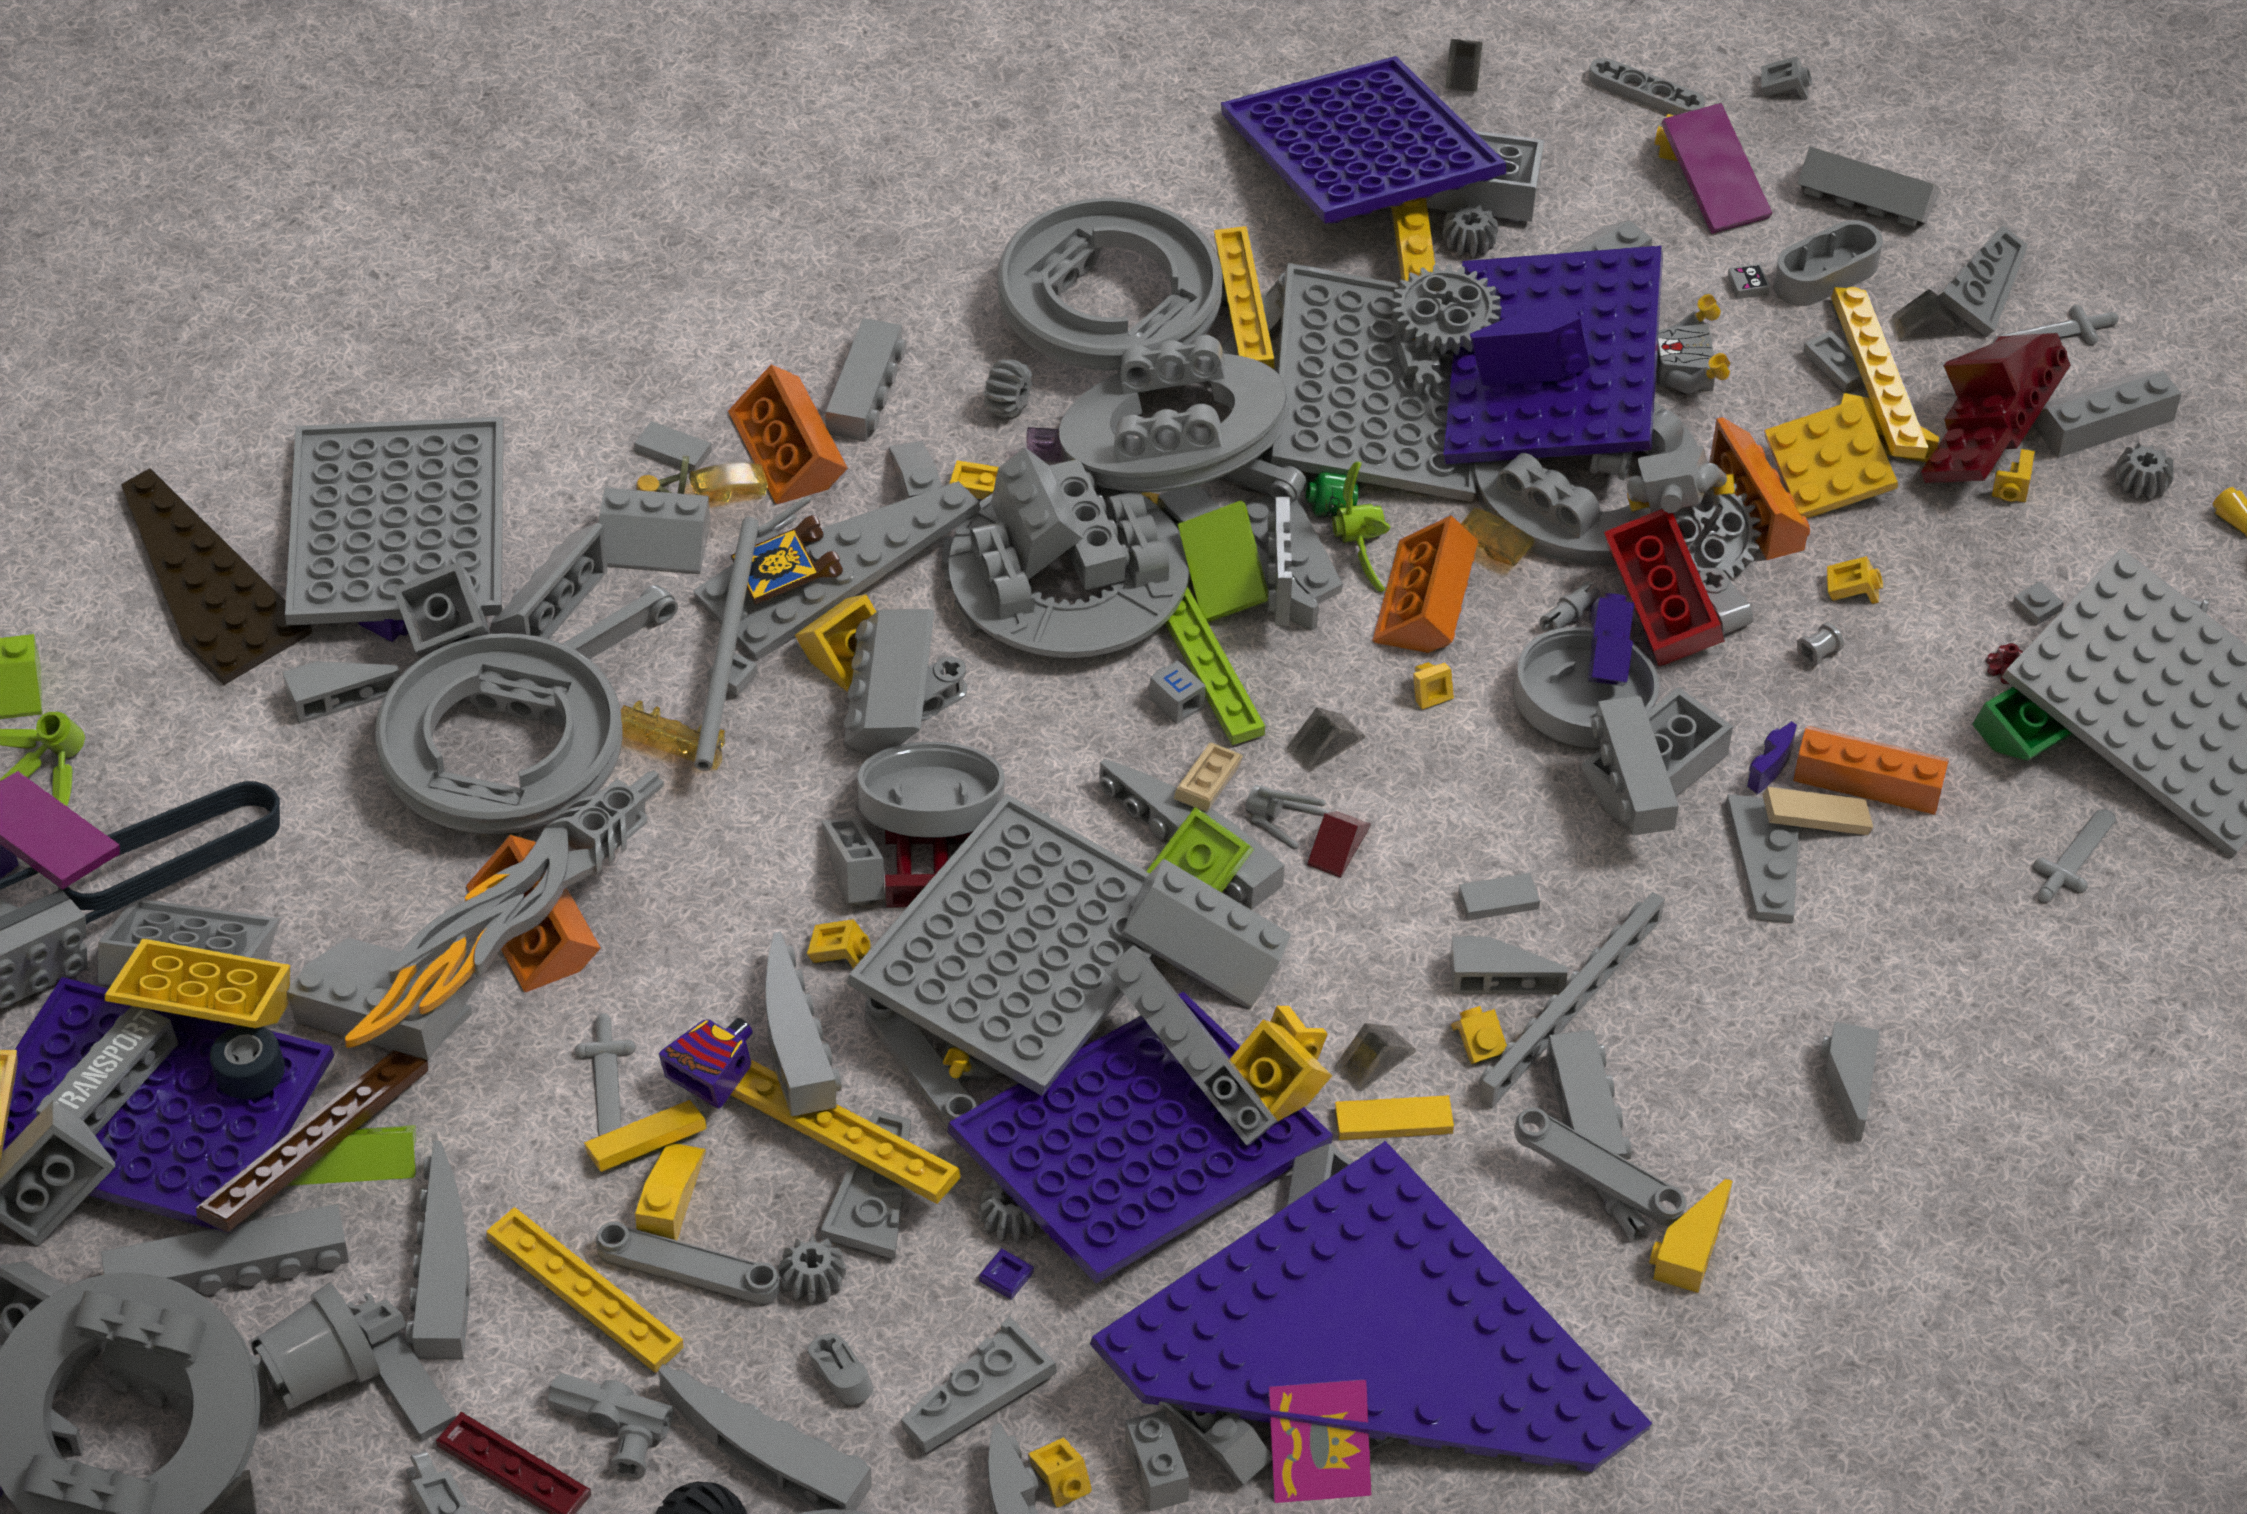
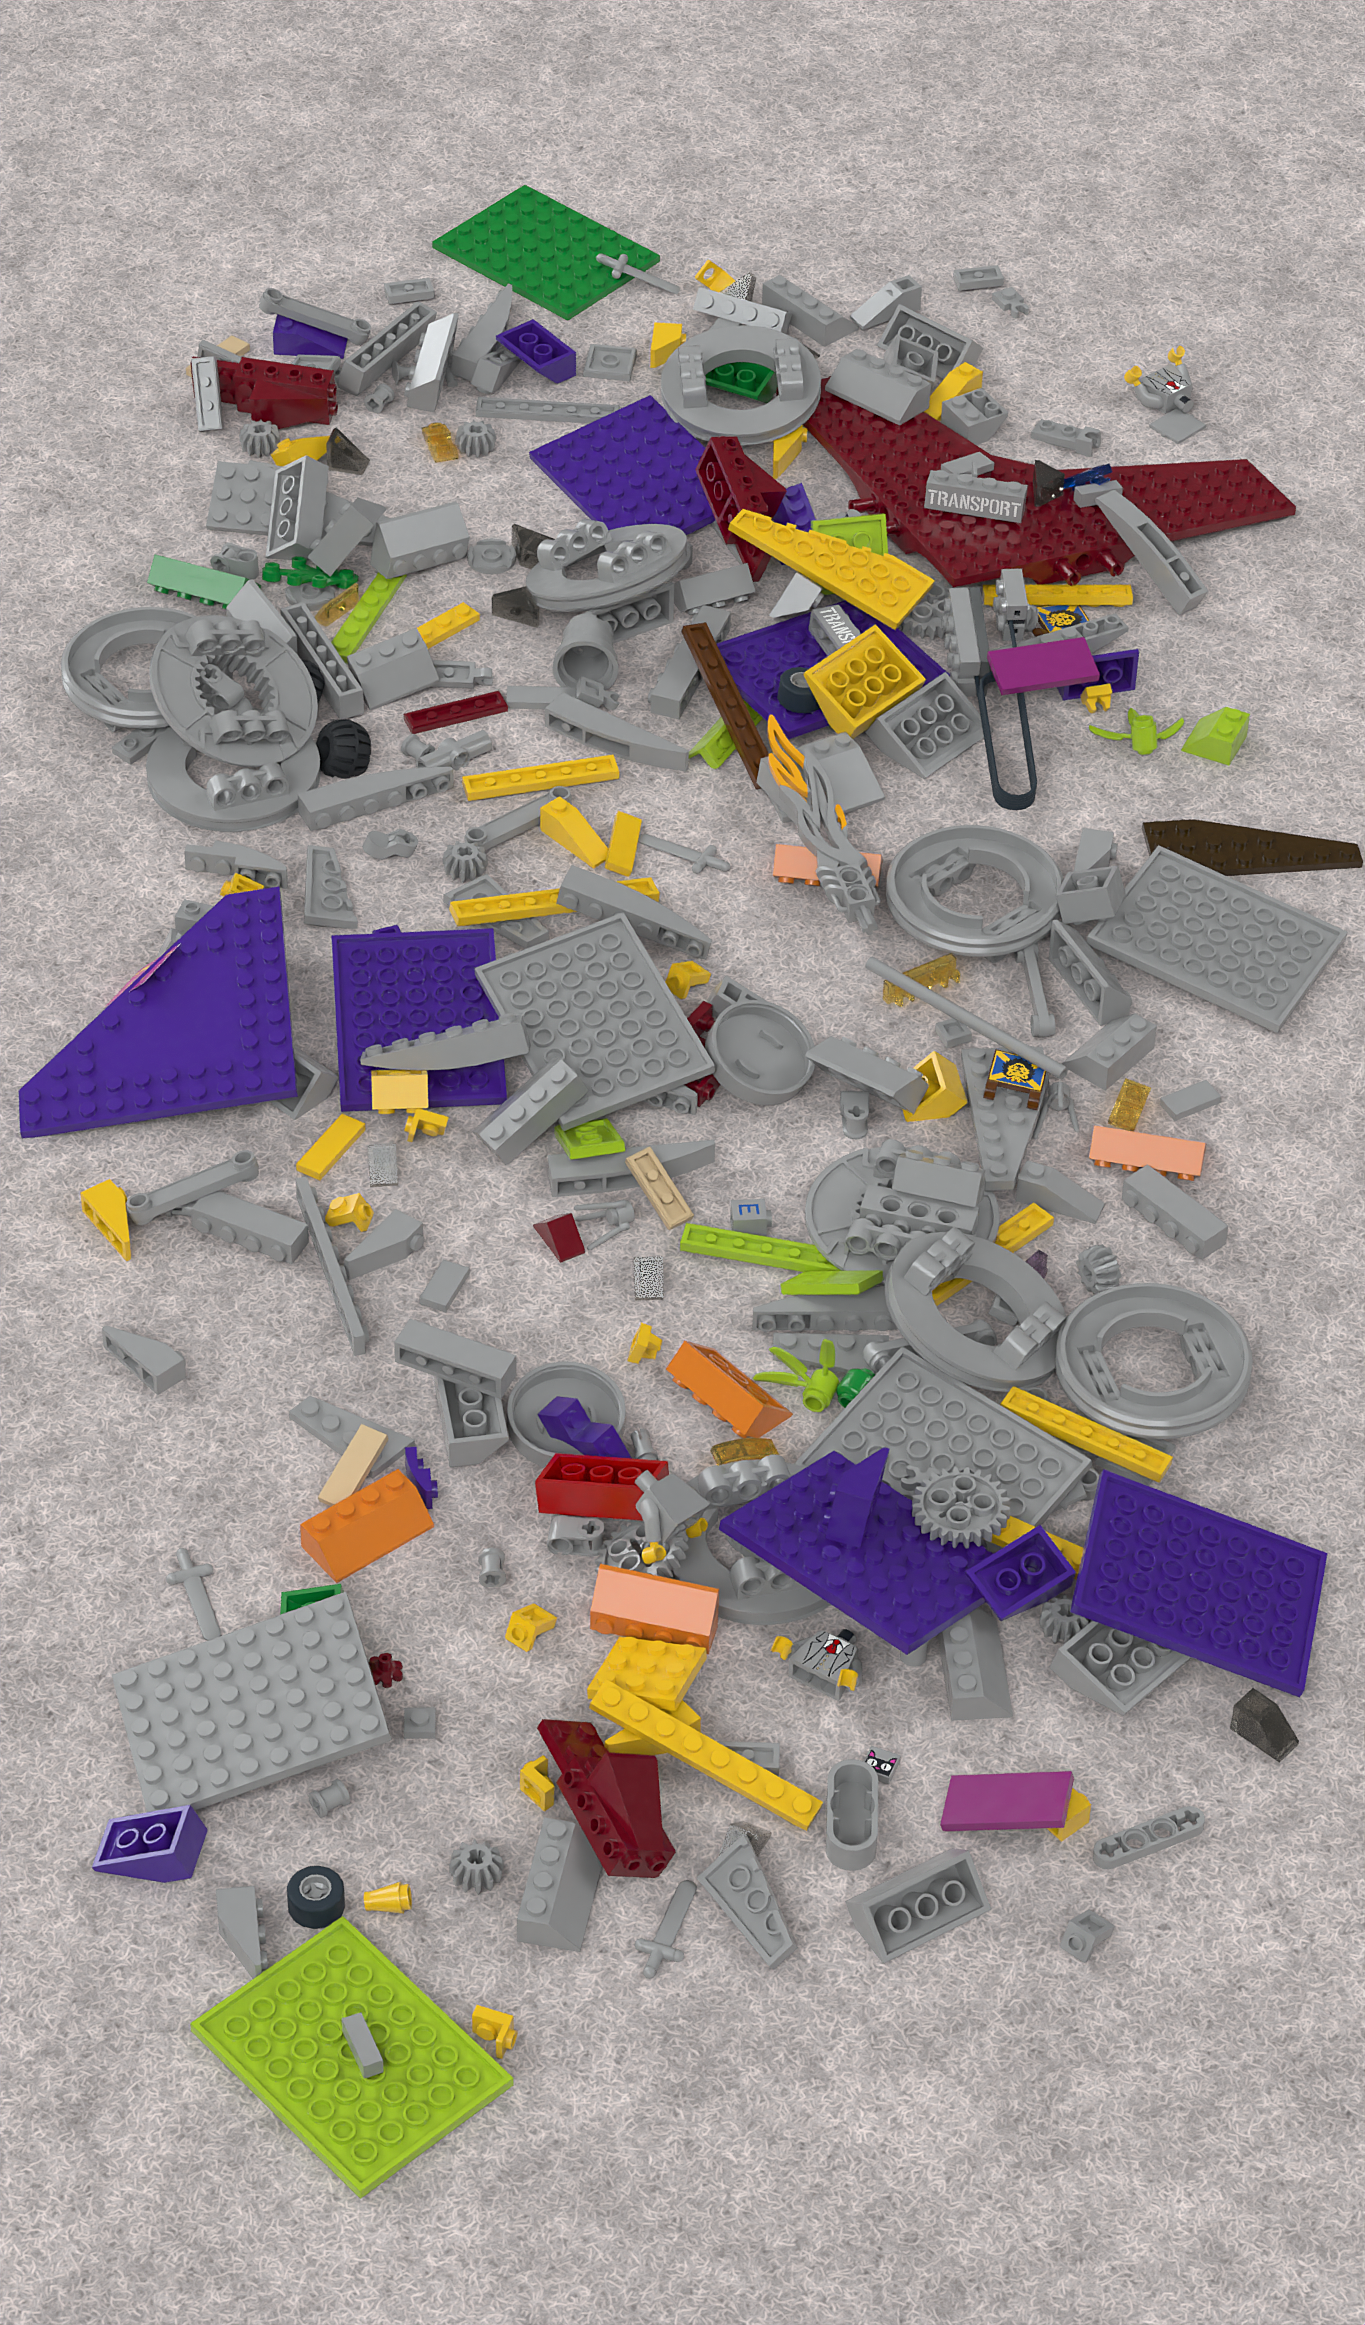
camera: 125 degrees right, 5 degrees down
(651, 483) = (1161, 1076): olive piece -> none
(709, 1060) = (638, 868): dark purple torso -> none
(1280, 571) = (790, 1288): light grey wing -> none
(1482, 235) = (1022, 1574): none -> dark purple slope

